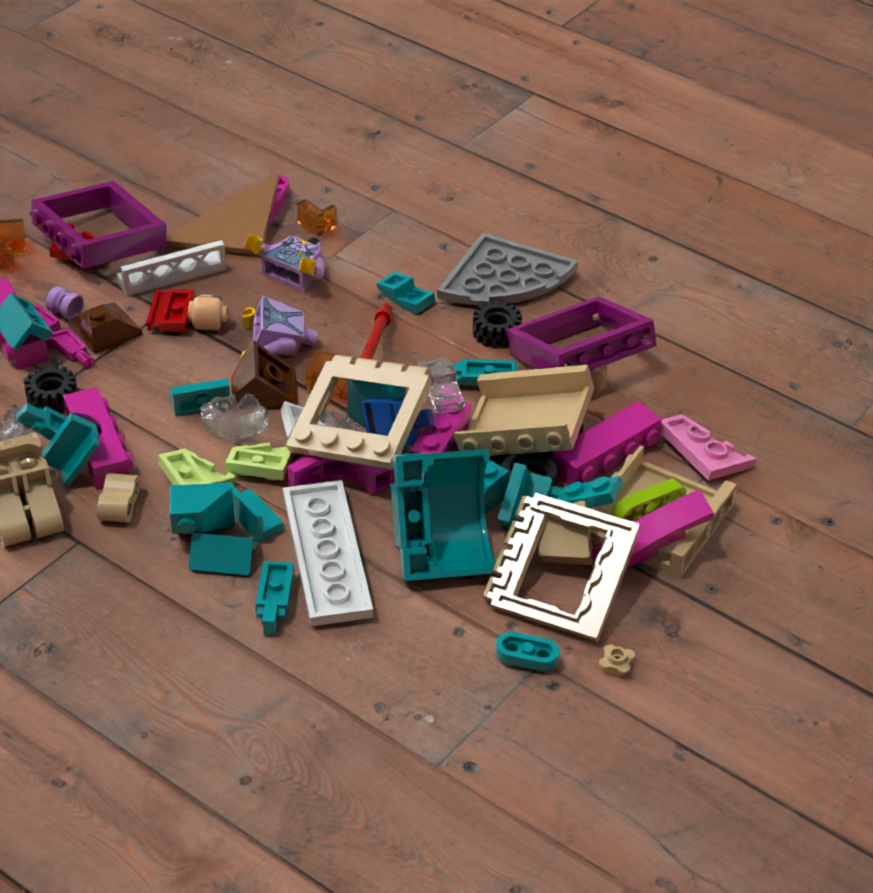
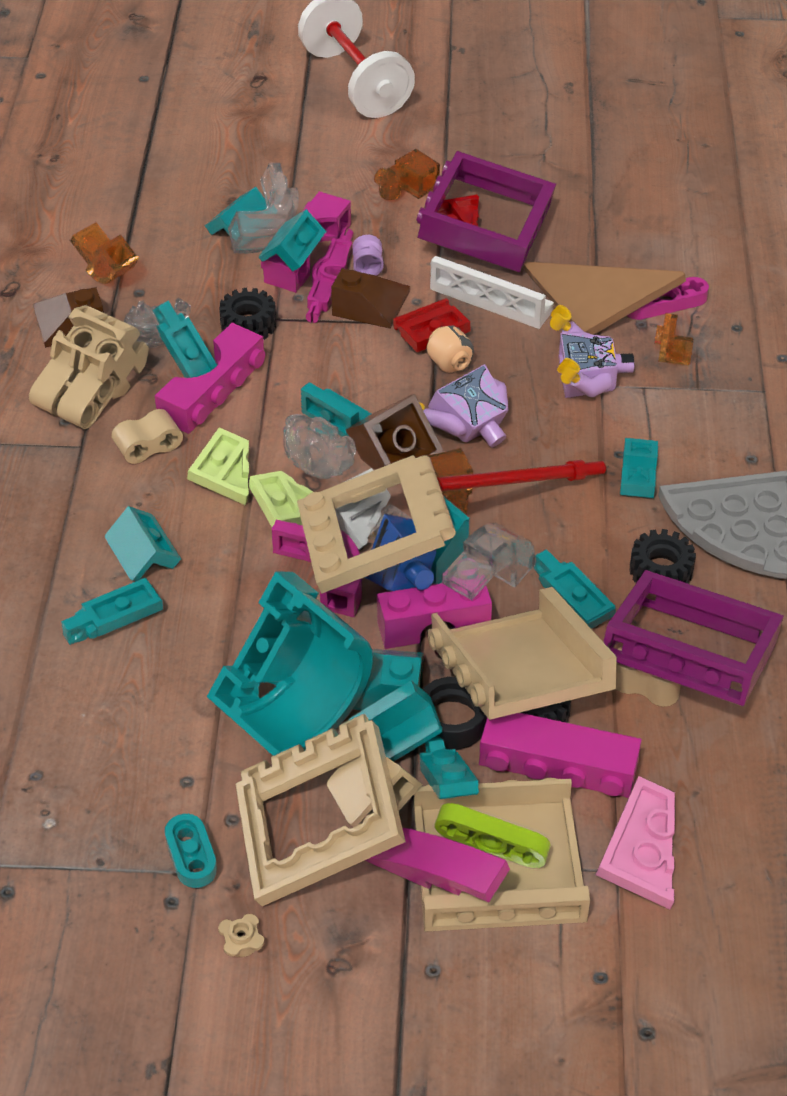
camera: 55 degrees right, 5 degrees up
(72, 447) = (167, 362): teal panel -> none
(201, 507) = (154, 492): teal slope -> none
(255, 515) = (208, 535): teal panel -> none
(327, 553) = (194, 620): white plate -> none

